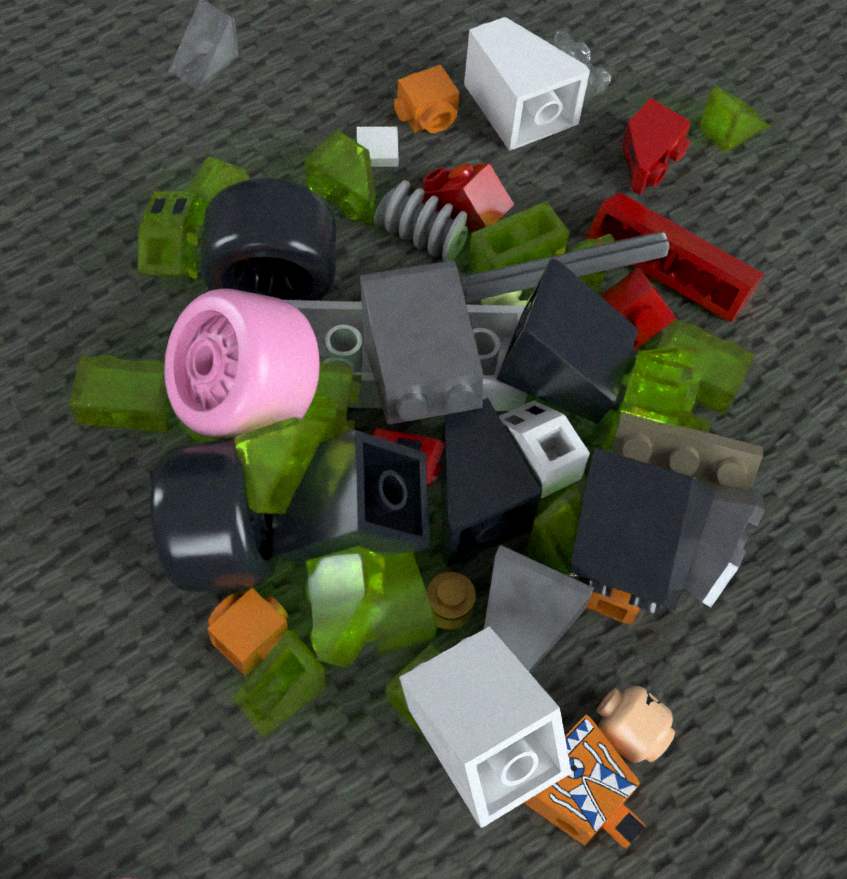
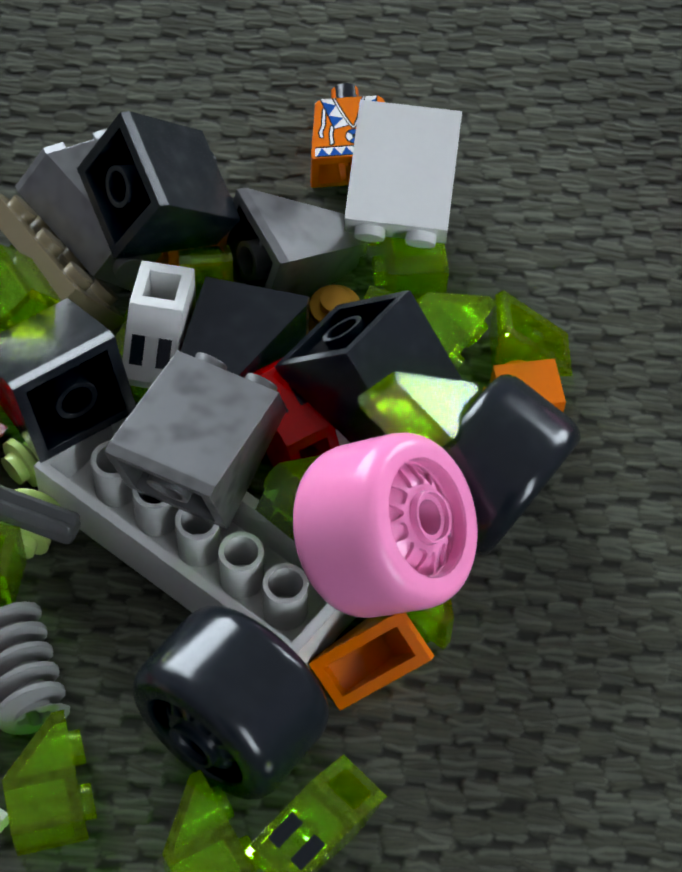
camera: 140 degrees left, 5 degrees down
(121, 393) = (488, 690): clear neon green brick -> none
(636, 724) = (272, 144): light nougat head -> none

